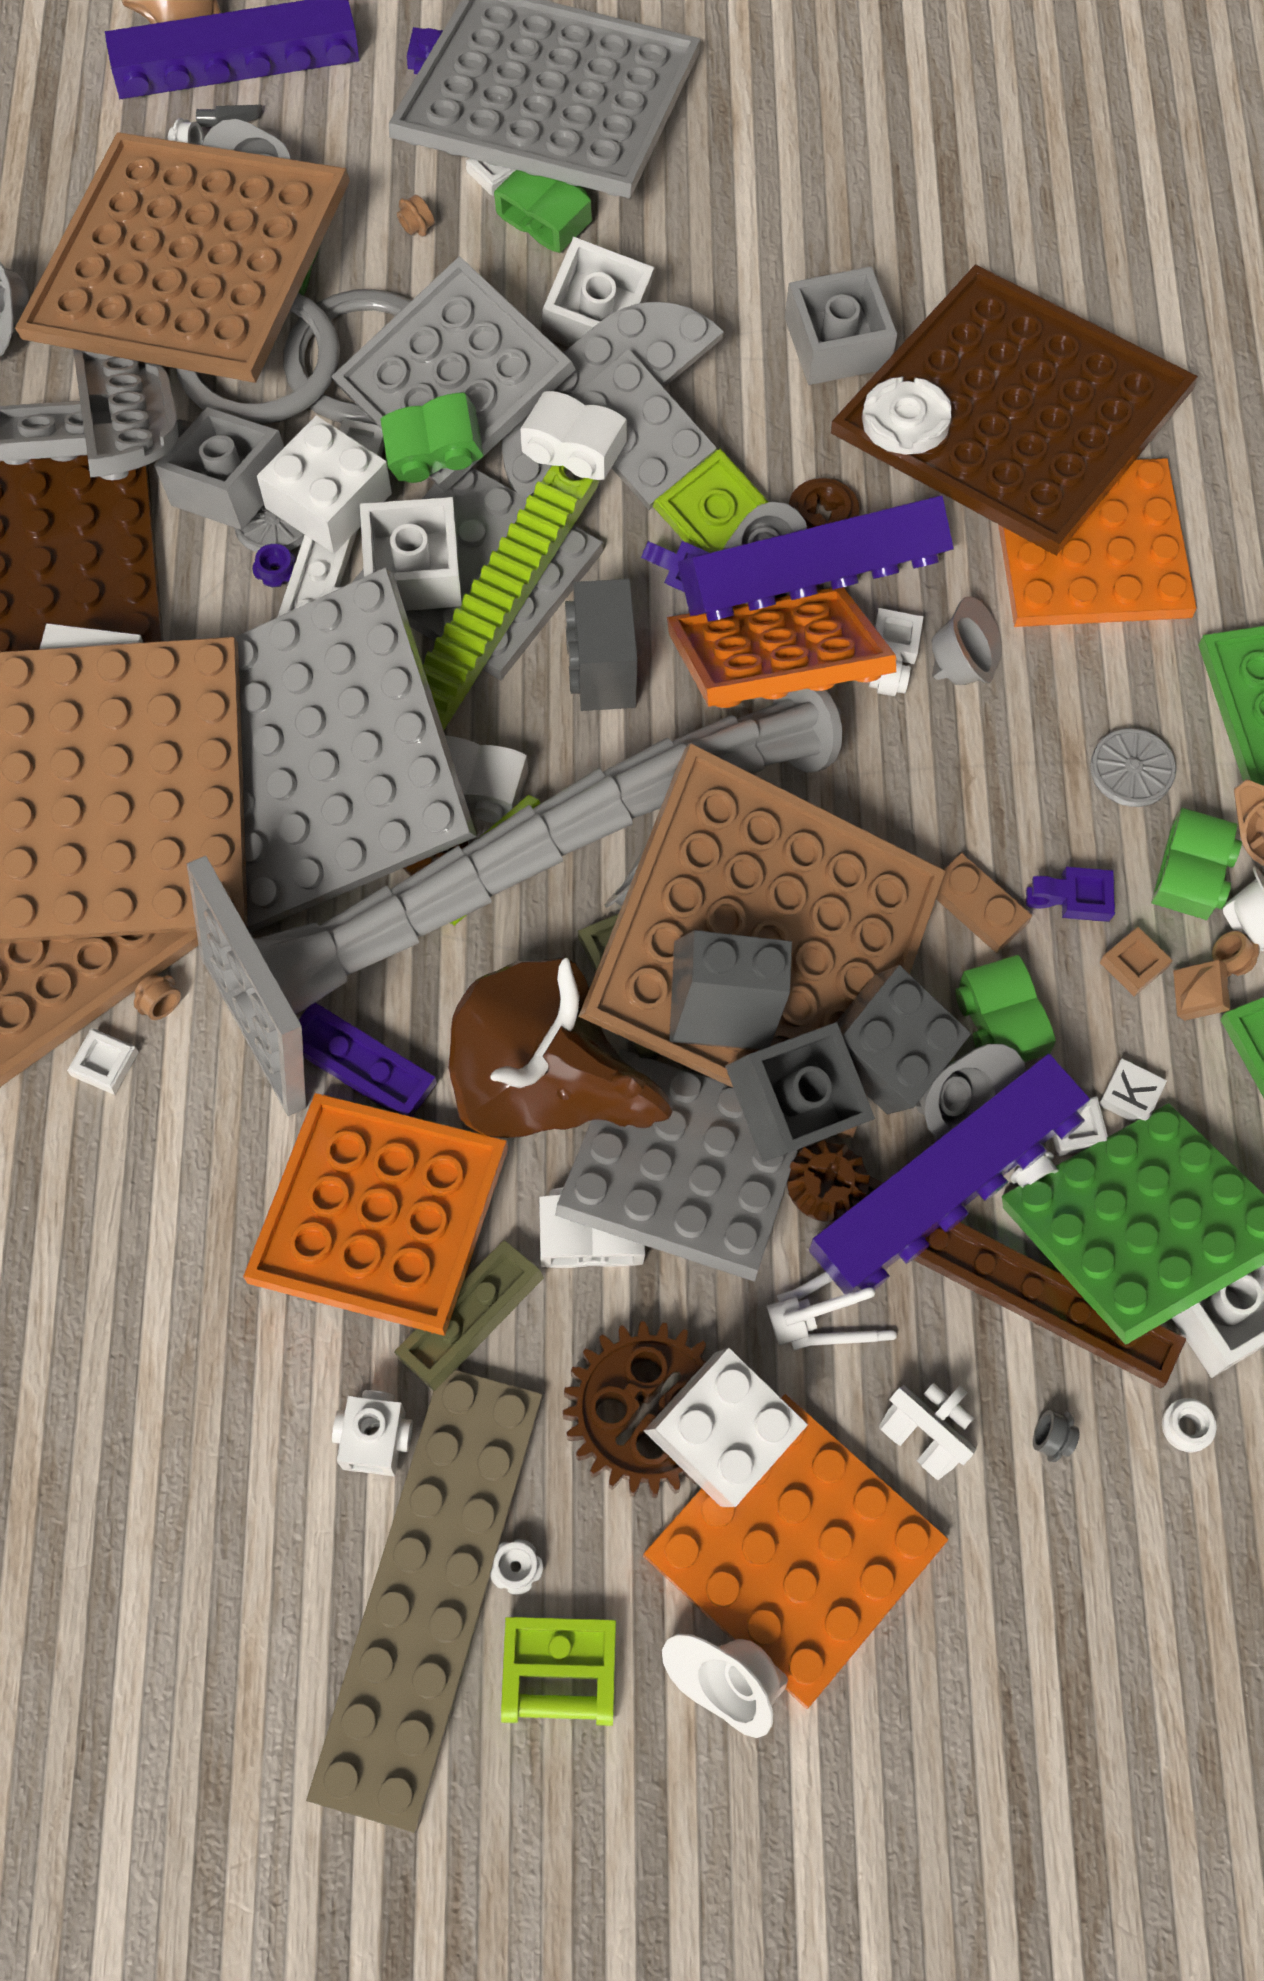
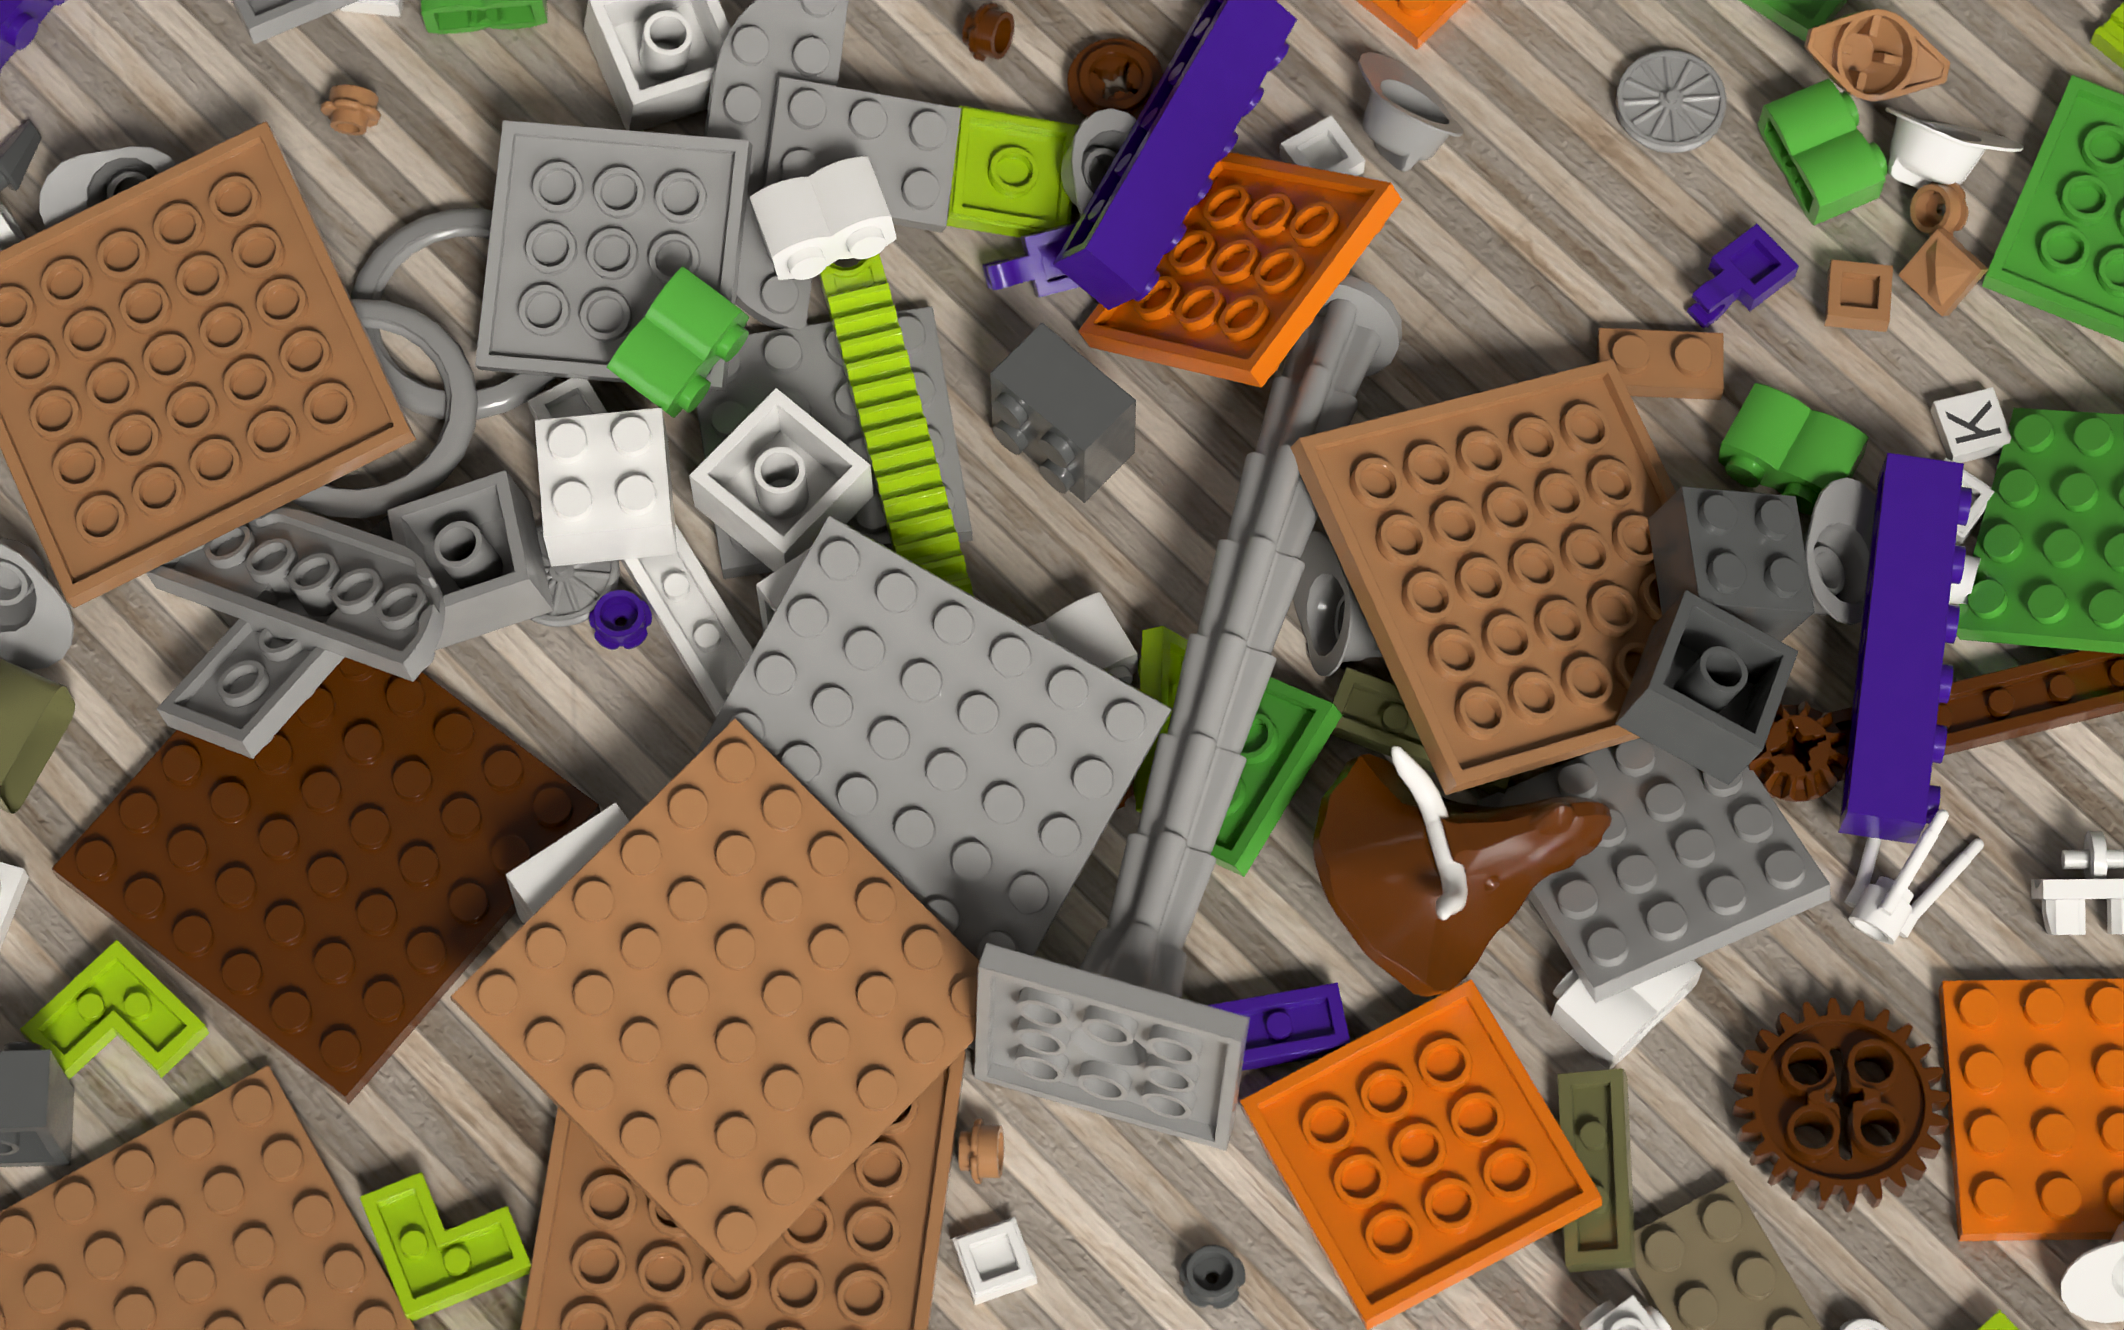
camera: 40 degrees left, 0 degrees up
(195, 1165) = (1207, 1260): none -> dark grey plate
(525, 922) = (1279, 753): none -> bright green wing
(725, 1428) = (1937, 1050): white brick -> none
(728, 989) = (1557, 647): dark grey slope -> none
(781, 430) = (988, 32): none -> reddish brown plate

